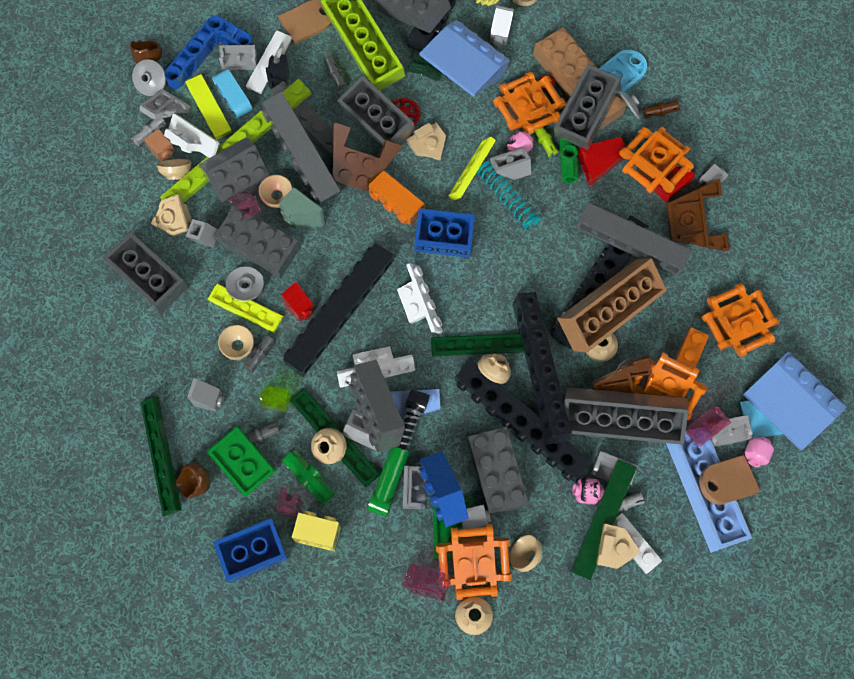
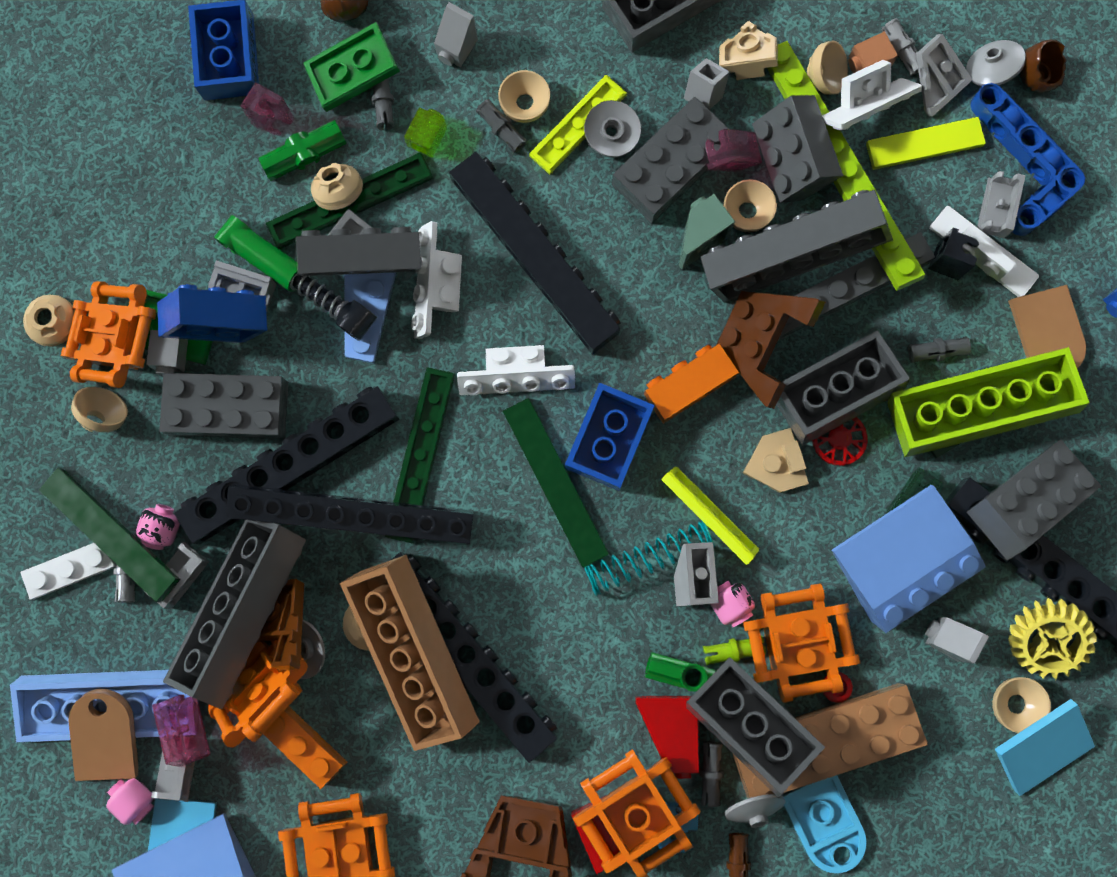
camera: 115 degrees right, 10 degrees up
(232, 92) = (939, 179): medium azure beam -> none
(297, 302) = (557, 193): red slope -> none
(316, 531) = (217, 137): light yellow brick -> none
(426, 582) = (102, 261): clear pink hinge -> none
(479, 261) = (555, 482): none -> dark green tile
(495, 368) = (370, 438): tan piece -> none
(615, 547) = (63, 536): tan plate -> none
(617, 132) = (711, 773): none -> dark grey pin
(633, 238) = (506, 726): dark grey brick -> none

